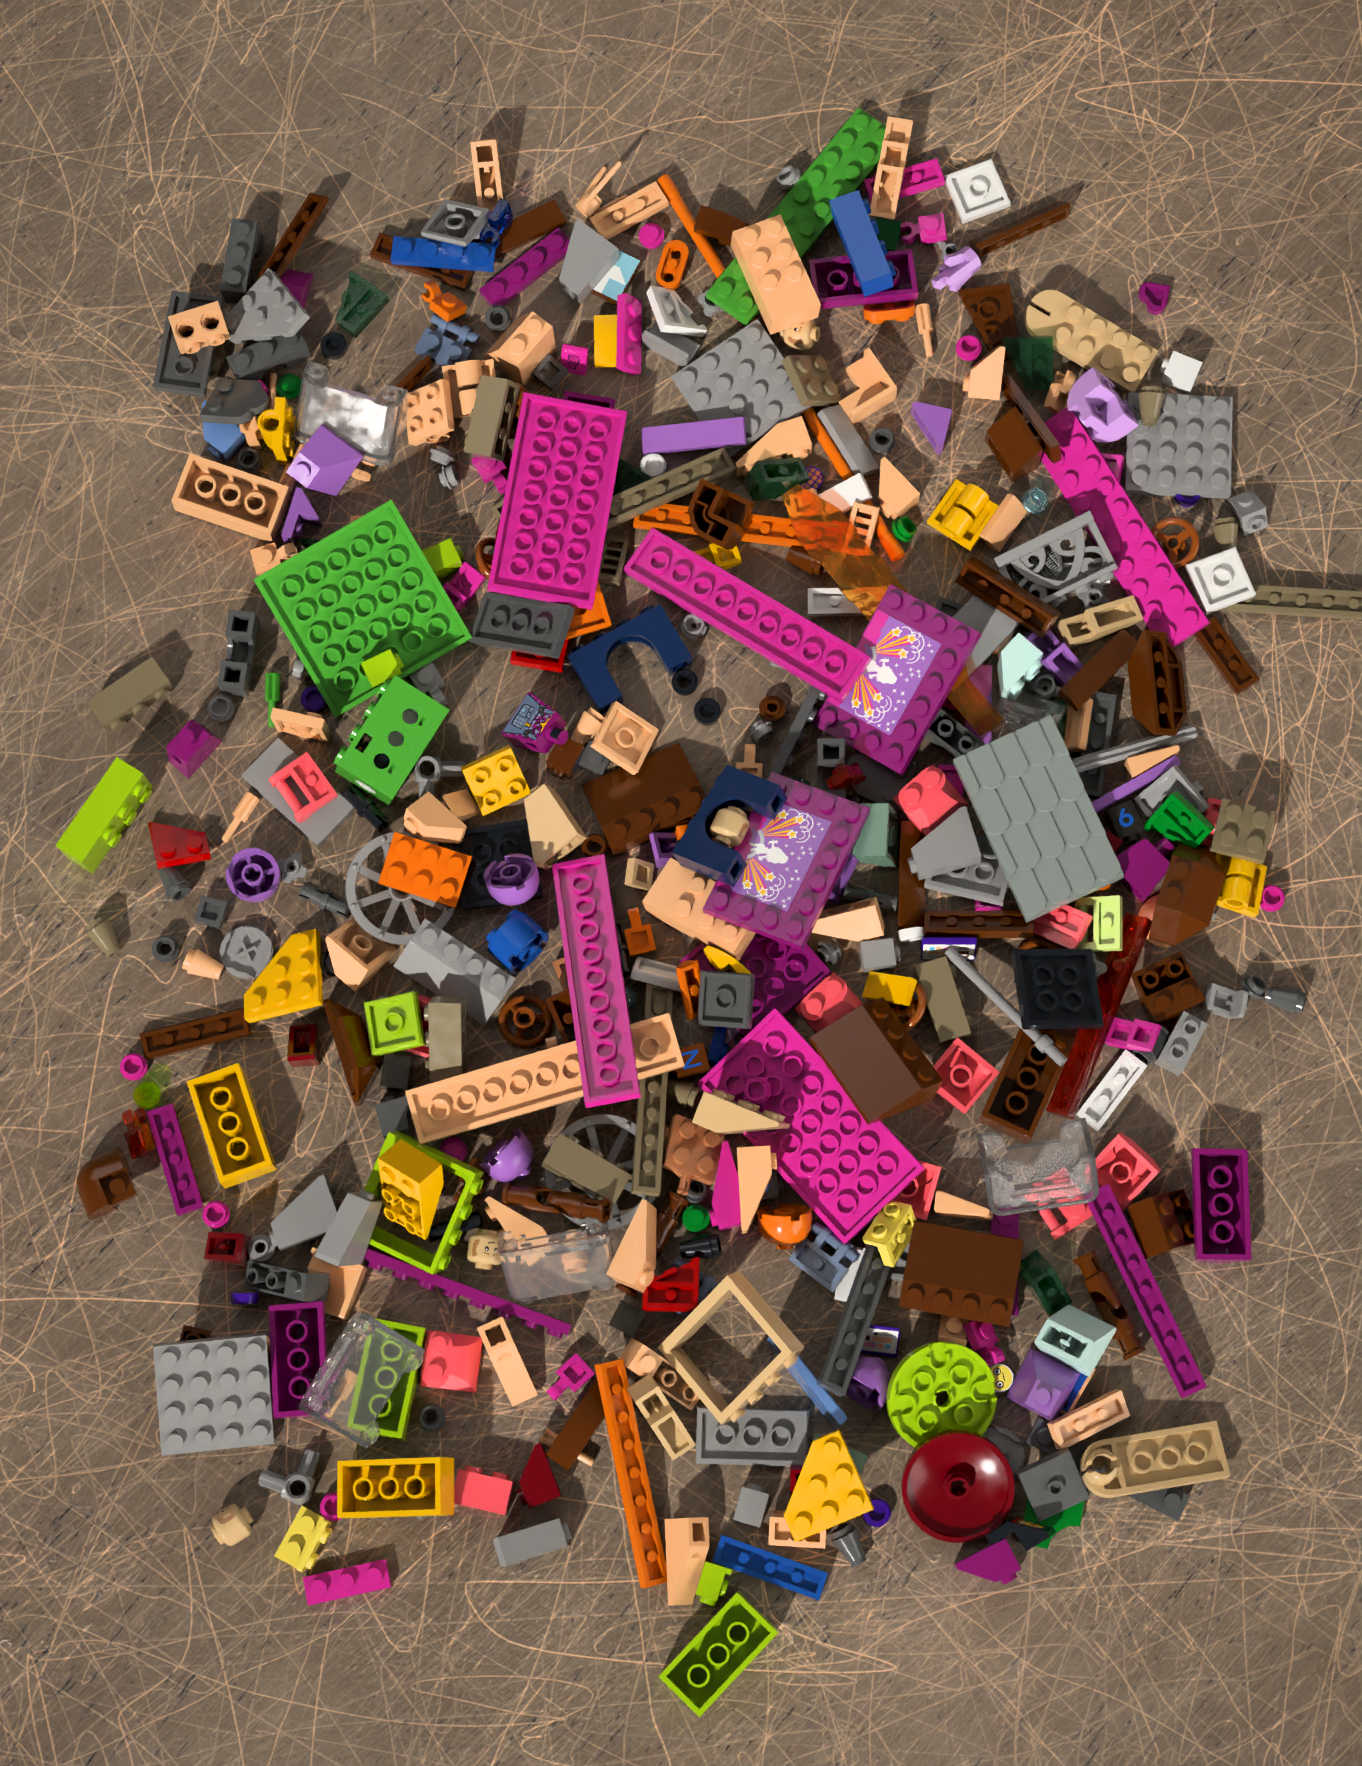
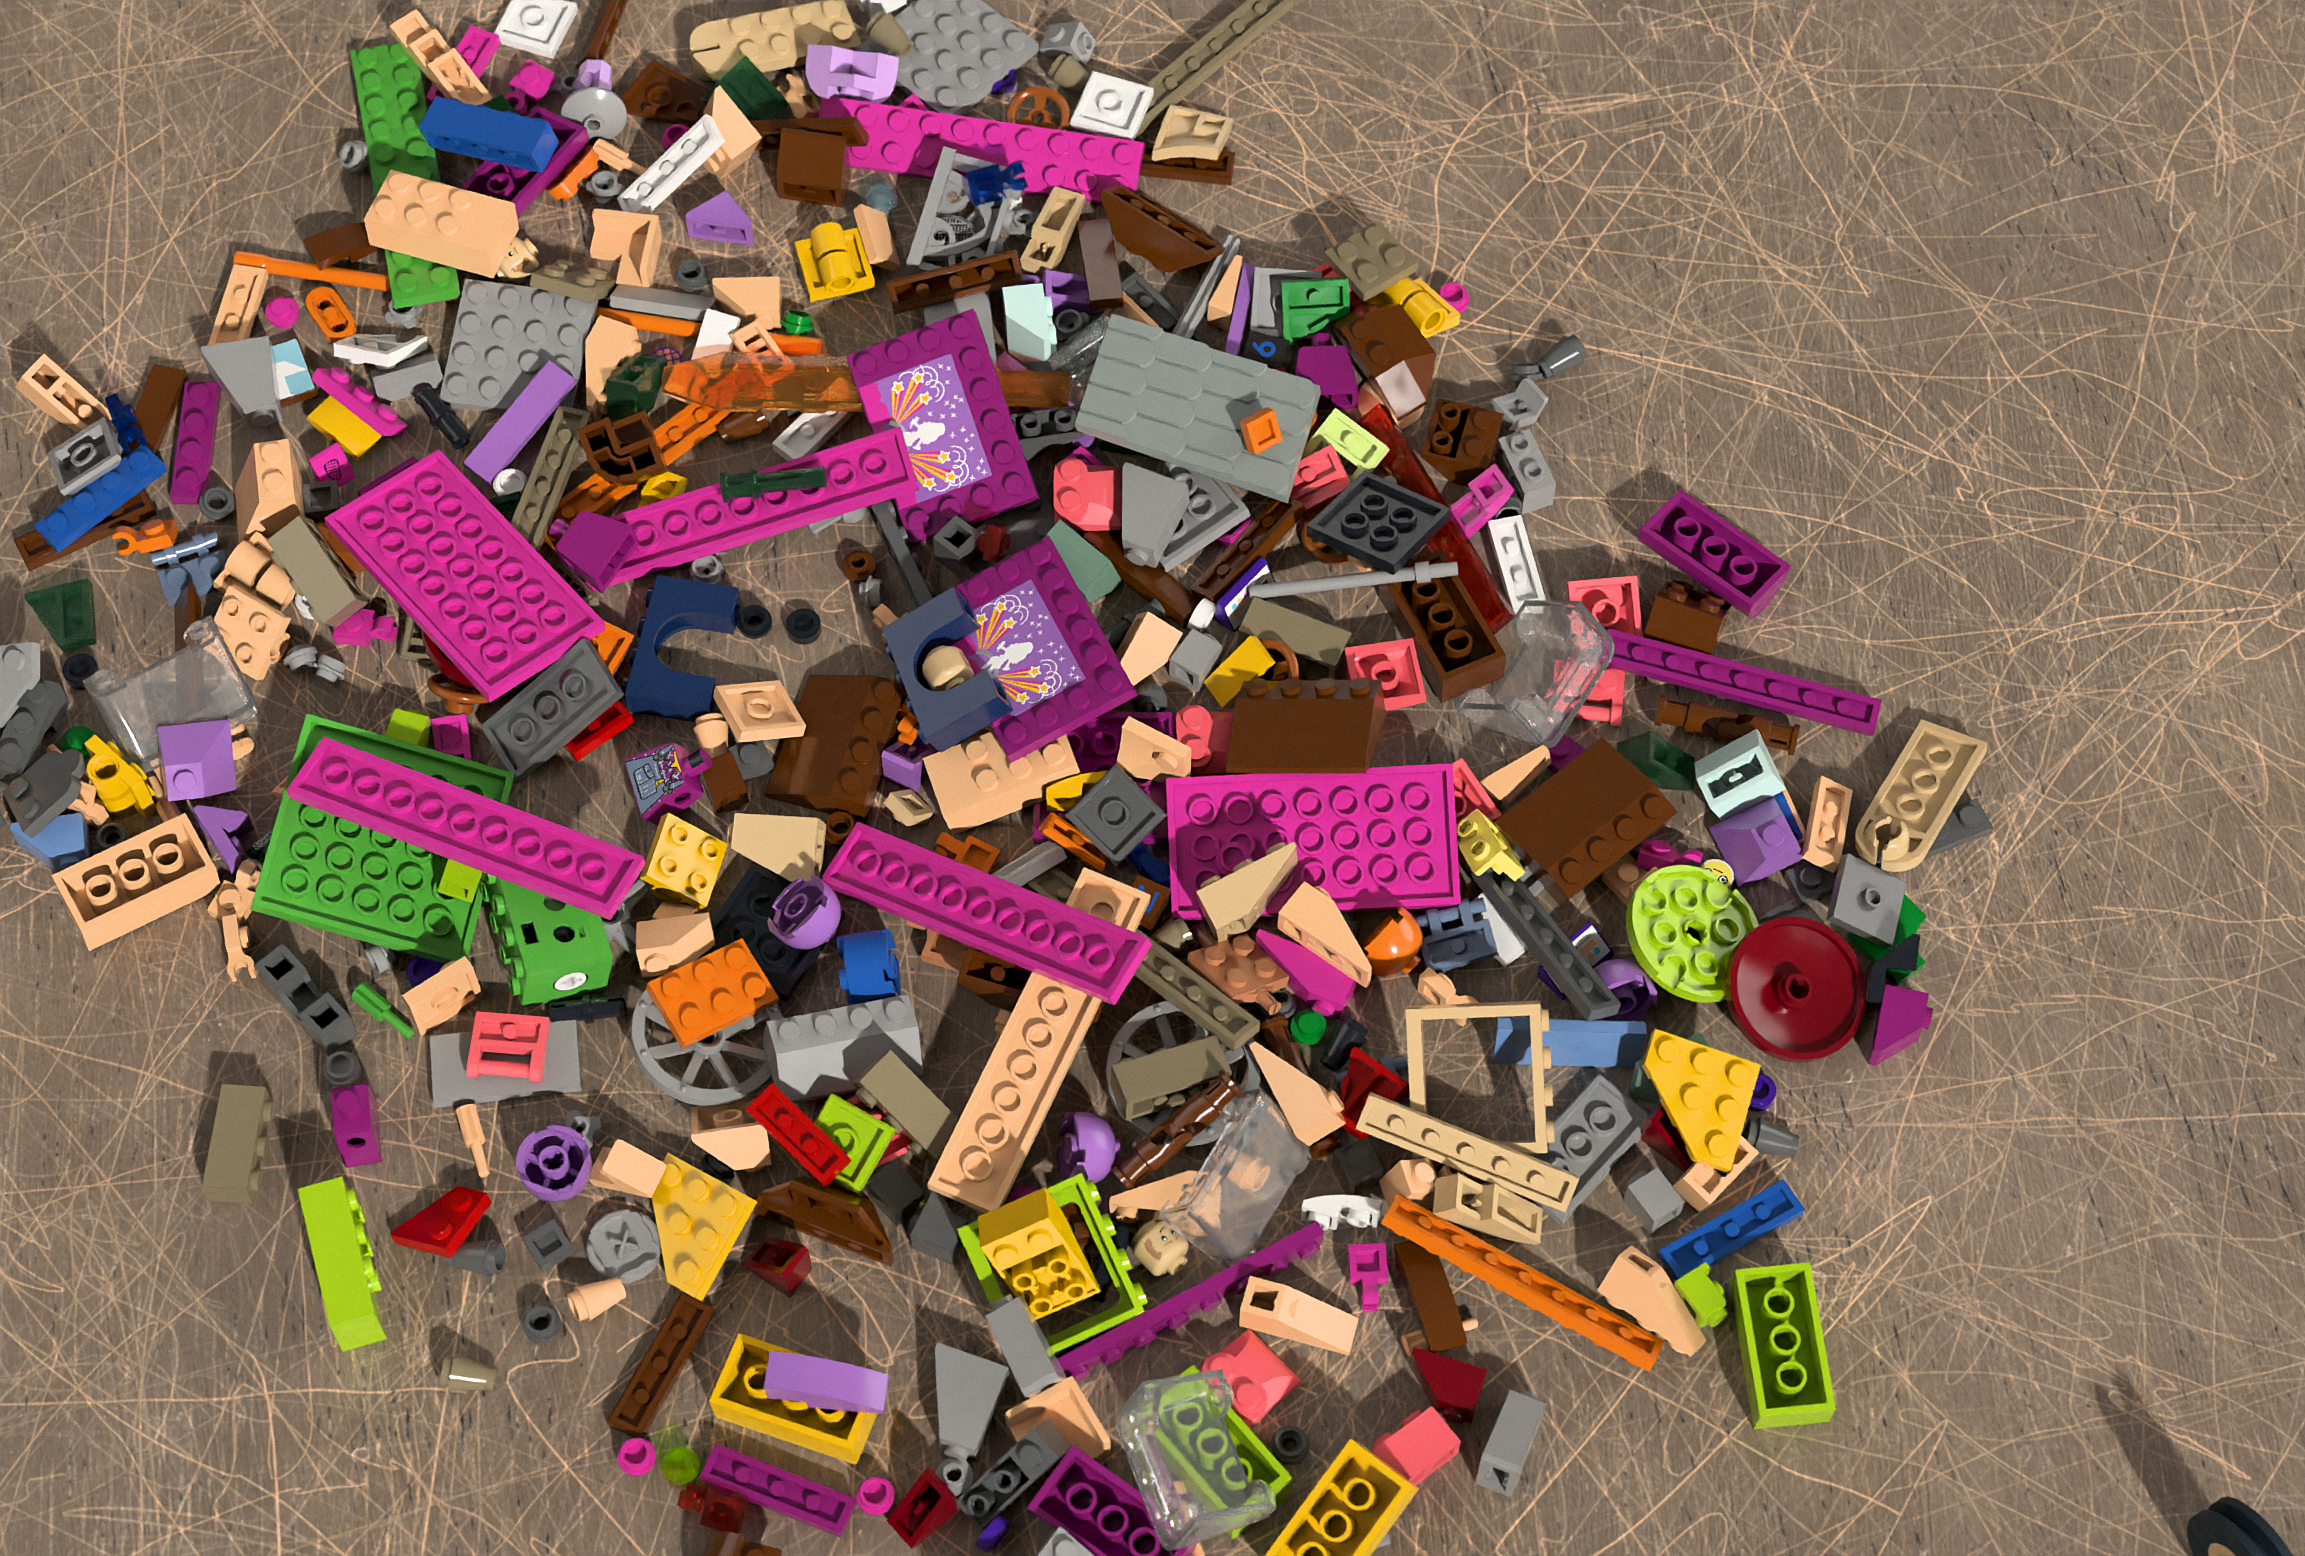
camera: 55 degrees left, 15 degrees down
(240, 586) = (236, 941): none -> light nougat plate
(241, 1138) = (825, 1383): none -> medium lavender slope
(285, 916) = (627, 1170): none -> light nougat slope
(325, 899) = (647, 1122): dark grey pin -> none
(373, 995) = (798, 1135): none -> red plate
(393, 652) = (467, 827): none -> dark pink plate
(545, 1017) = (951, 1018): dark orange piece -> none
(588, 1326) = (1328, 1209): none -> white slope
(589, 202) = (192, 334): light nougat plant -> none
(644, 552) = (594, 546): none -> magenta torso
(661, 389) = (442, 417): none -> black pin
(681, 1378) = (1467, 1152): none -> tan plate
(758, 610) = (756, 484): none -> clear green pin
(778, 980) = (1152, 754): none -> light nougat plate
(782, 1276) = (1440, 990): none -> light nougat plate
(898, 329) = (603, 180): none -> light grey plate
(934, 367) = (672, 167): none -> white tile
(936, 286) = (597, 105): none -> light grey dish
(1050, 870) = (1261, 430): none -> orange plate
(1091, 560) = (990, 183): none -> clear blue plate
(1246, 644) = (1191, 134): none -> tan plate

